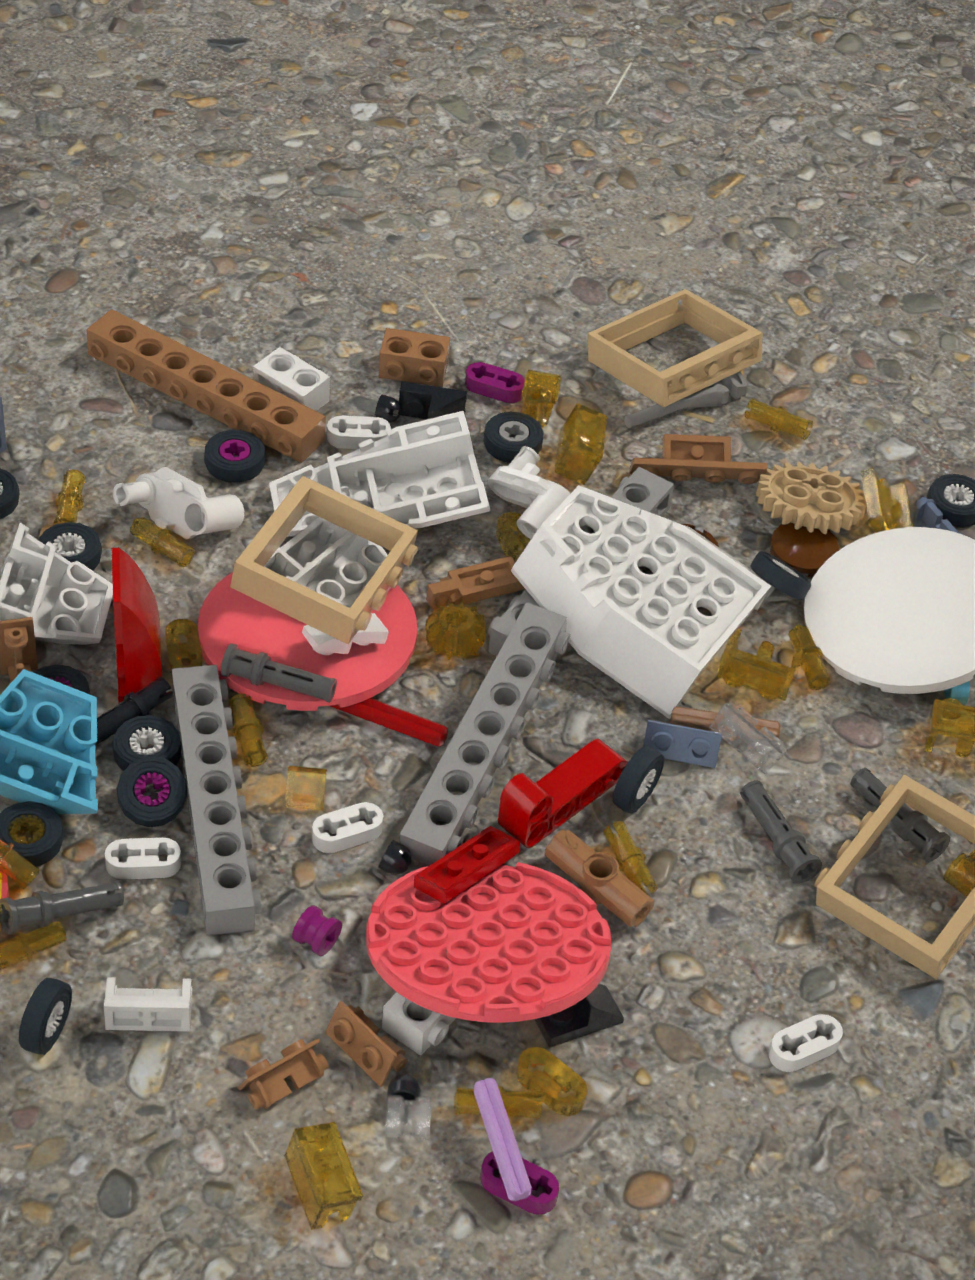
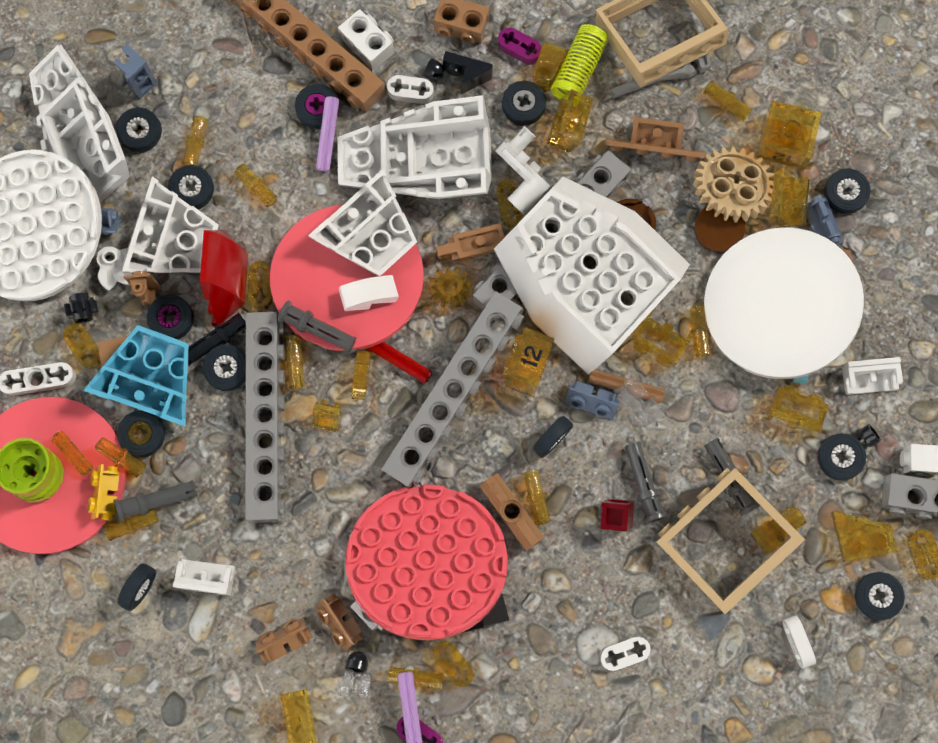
camera: 15 degrees right, 30 degrees up
(143, 858) = (213, 466): white beam -> none
(161, 775) = (216, 421): black bush -> none
(180, 503) = (269, 158): white piece -> none
(255, 478) = (327, 133): none -> lavender axle
(303, 603) = (324, 213): tan window -> none
(317, 930) = (318, 534): magenta wheel -> none
(347, 737) = (361, 375): none -> clear yellow beam
(347, 827) = (350, 442): white beam -> none
(395, 859) = (377, 478): black hinge -> none
(466, 864) = (424, 495): red tile -> none
(537, 809) = (500, 437): red beam -> none
(560, 399) = (584, 58): none -> neon yellow piece
(583, 693) = (529, 361): none -> clear yellow brick
(752, 862) = (617, 515): none -> dark red brick
(780, 575) = (693, 260): black bush -> none
(866, 438) = (788, 134): none -> clear yellow brick

